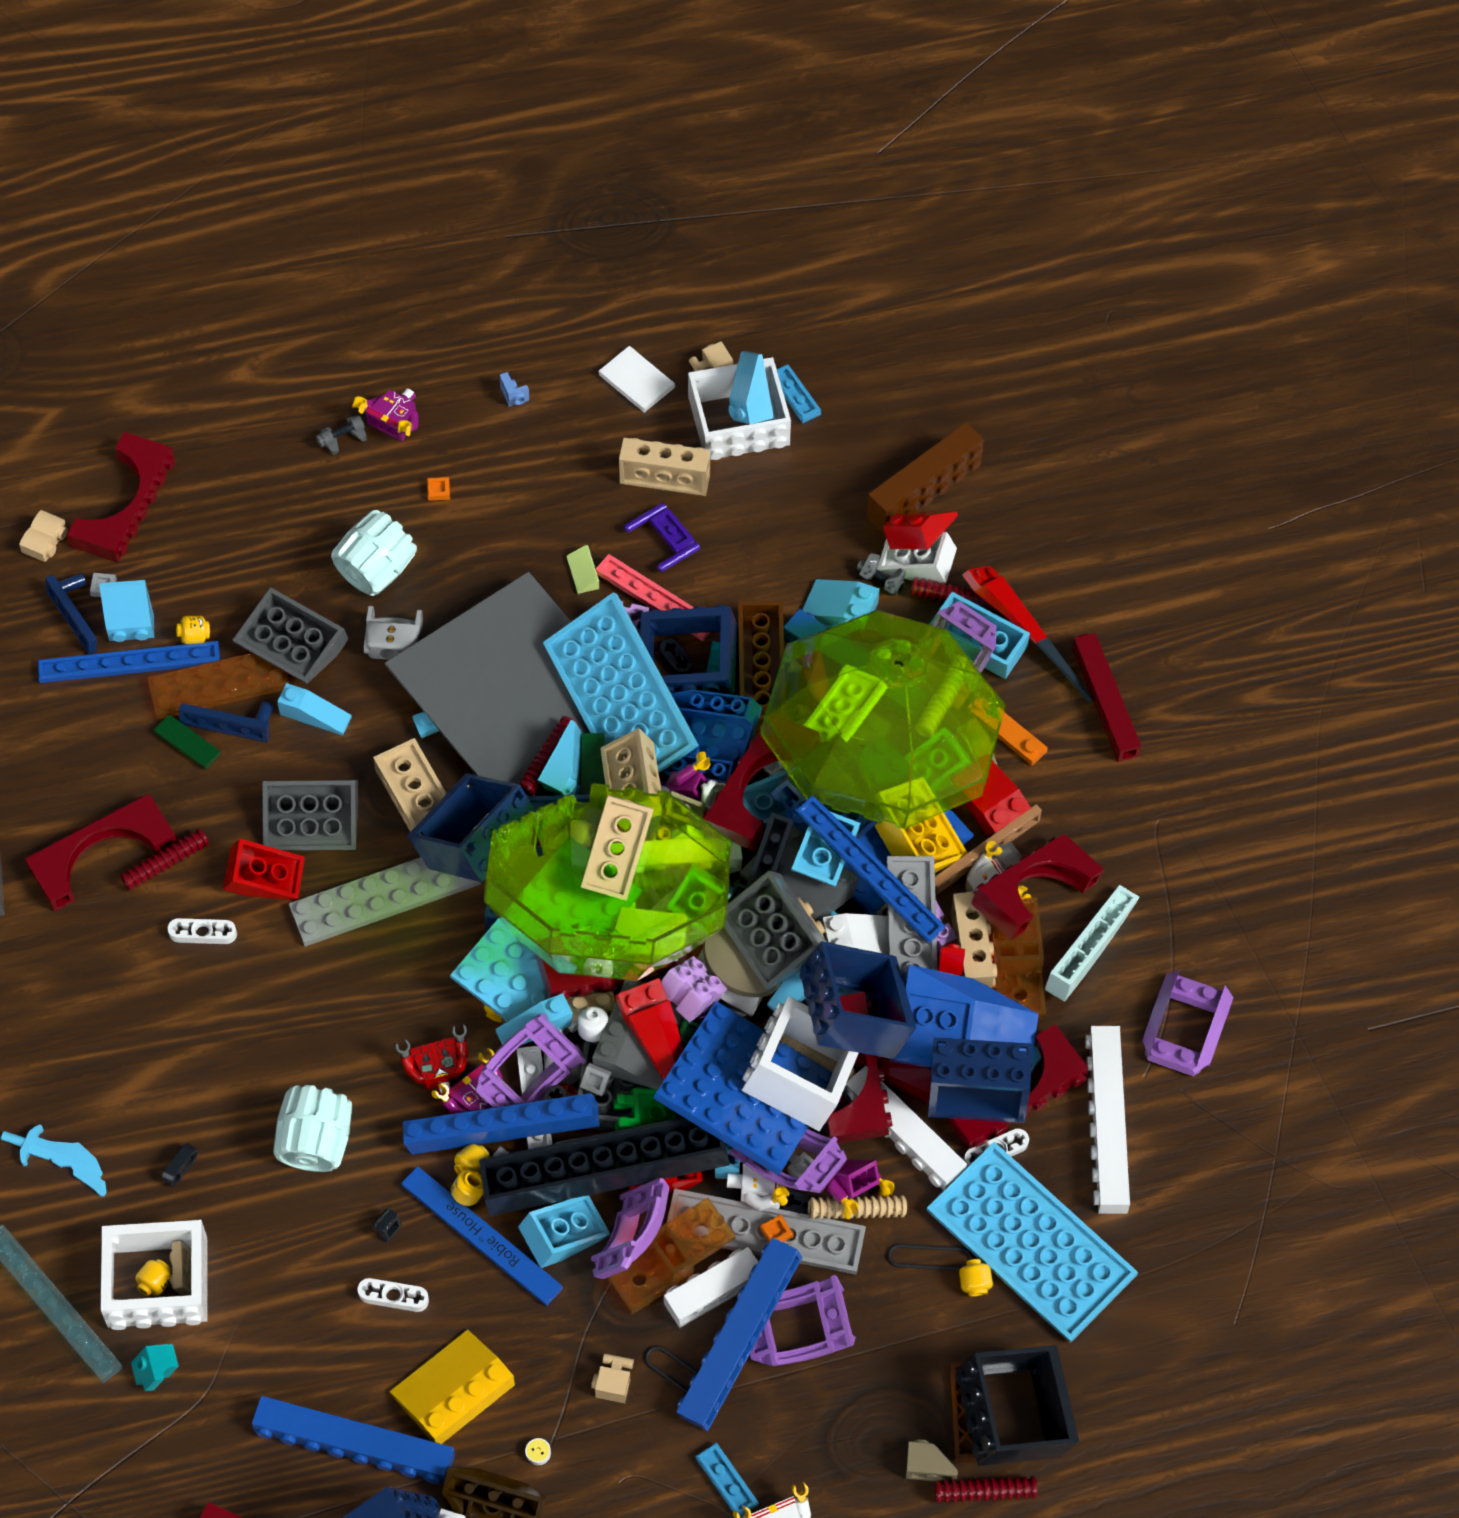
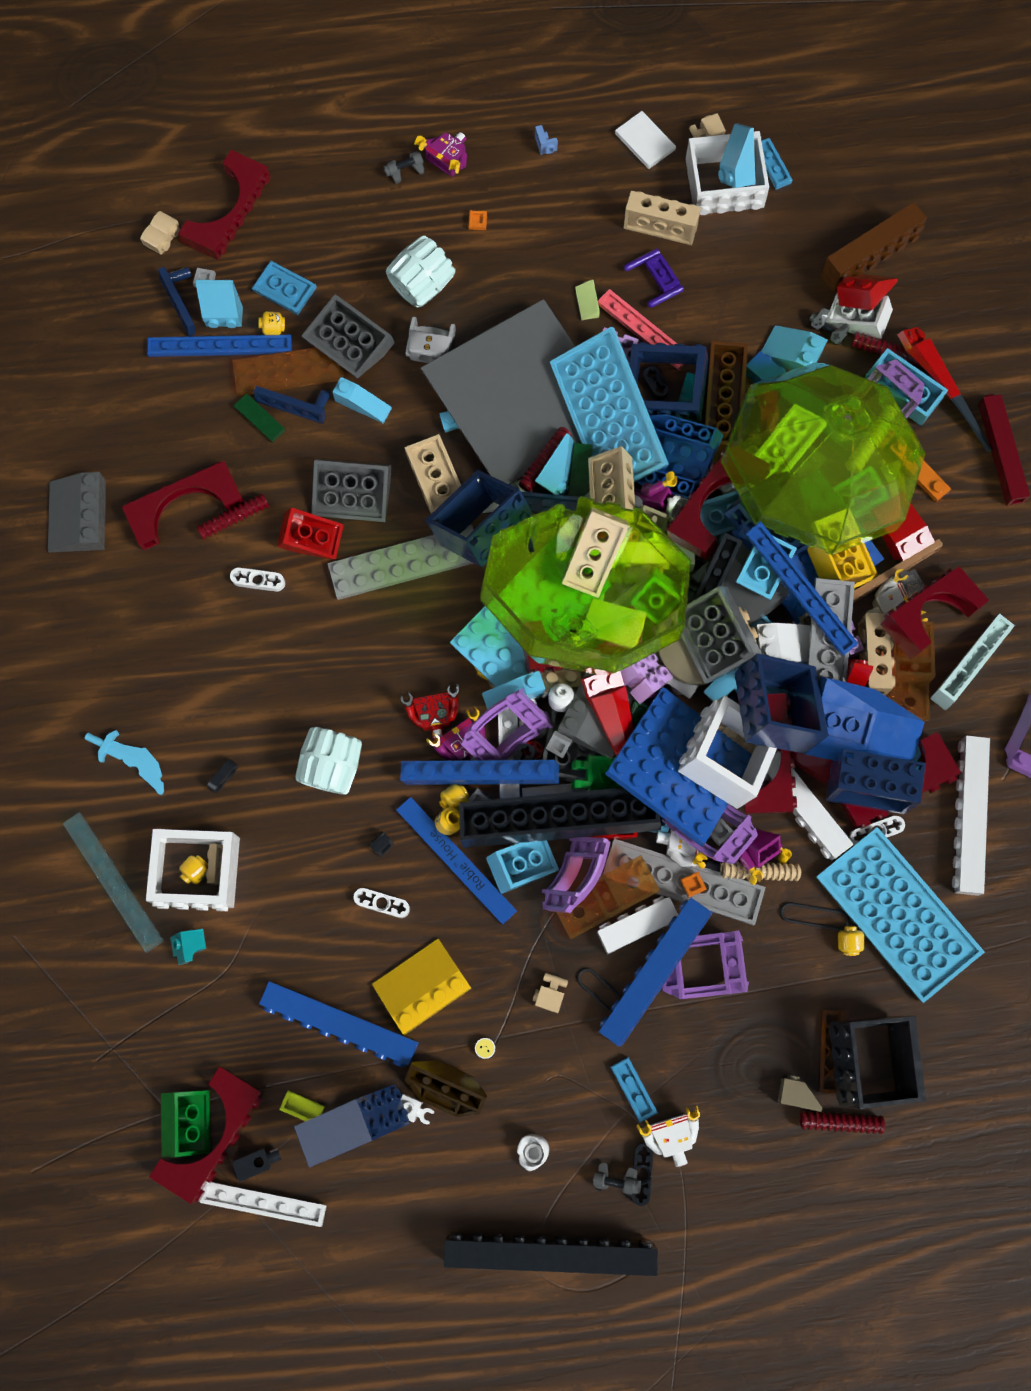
camera: 10 degrees right, 15 degrees up
(204, 587) = (284, 287): none -> dark azure tile

